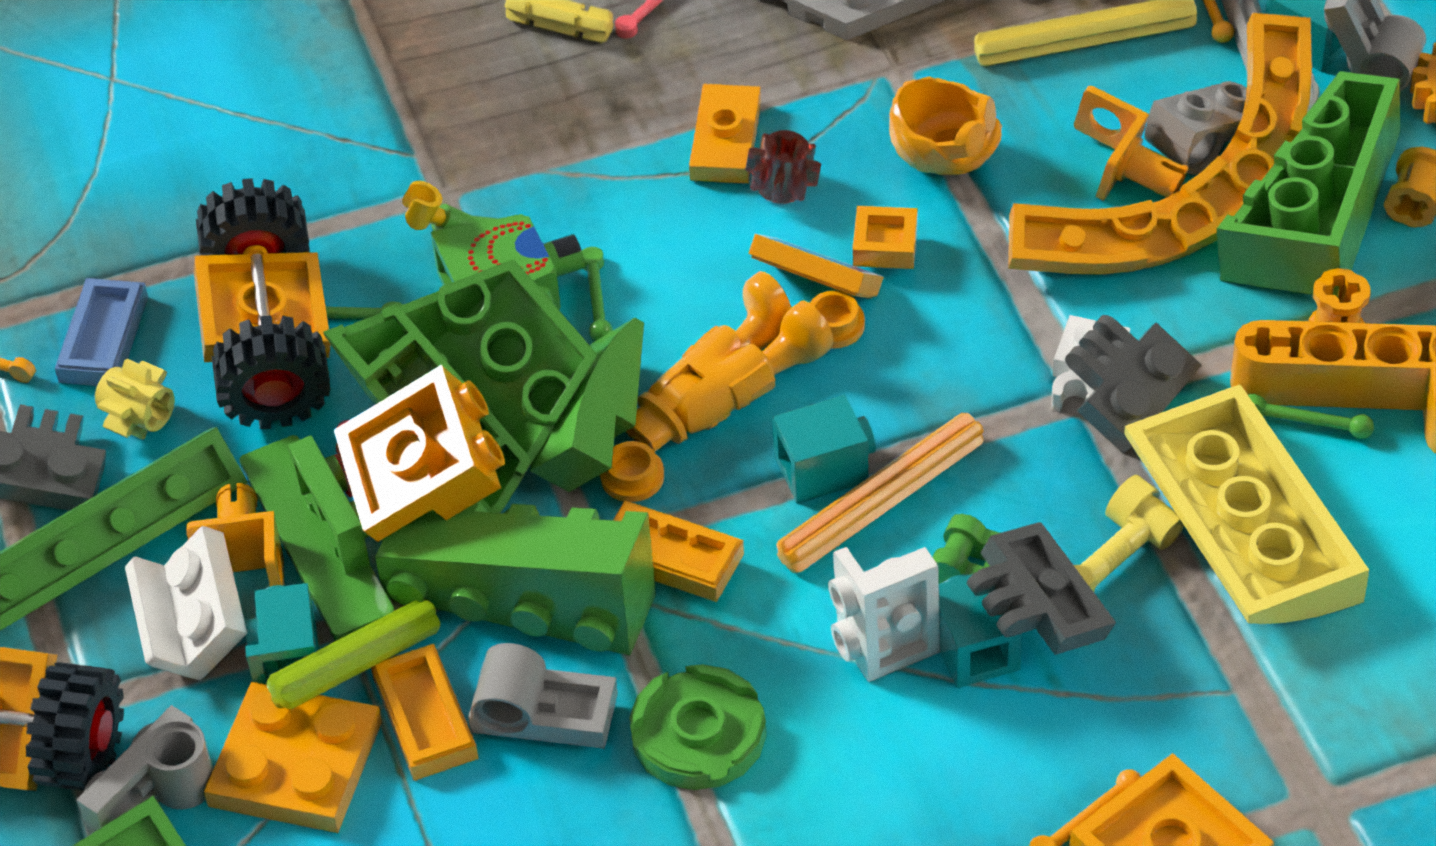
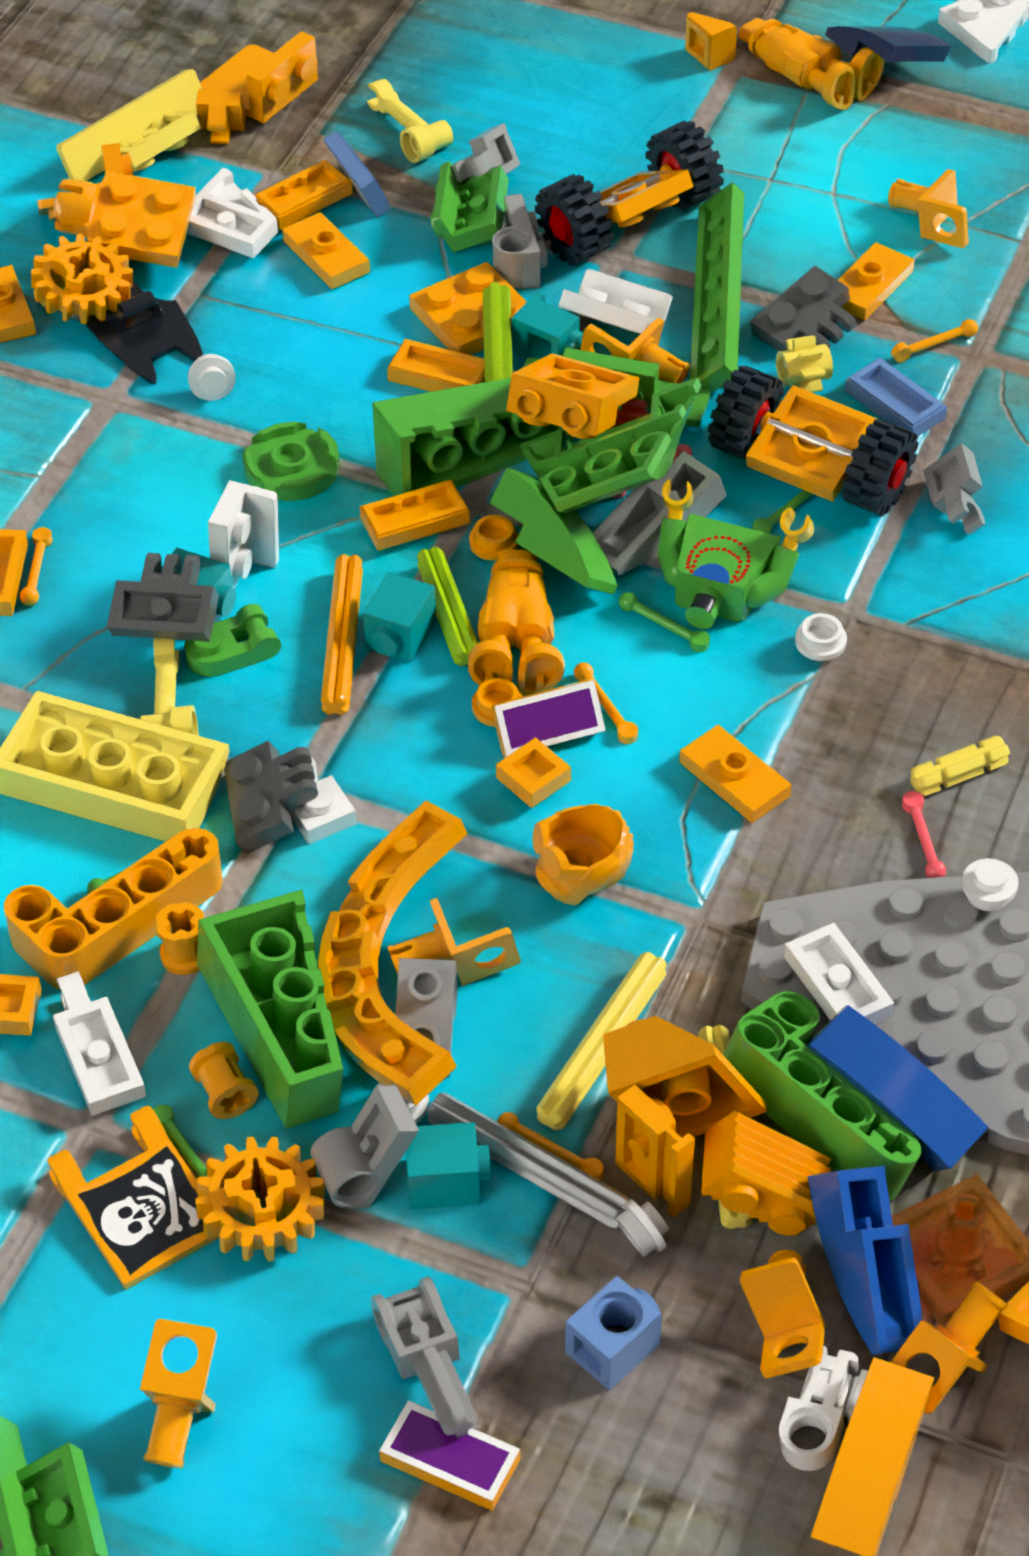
camera: 130 degrees right, 0 degrees up
(184, 199) = (952, 483): none -> light grey plate
(505, 174) = (821, 637): none -> white plate
(534, 703) = (384, 379): light grey plate -> none
(724, 299) = (627, 731): none -> light orange hinge
(751, 447) = (449, 605): none -> lime axle
(783, 166) = (653, 759): clear red gear -> none

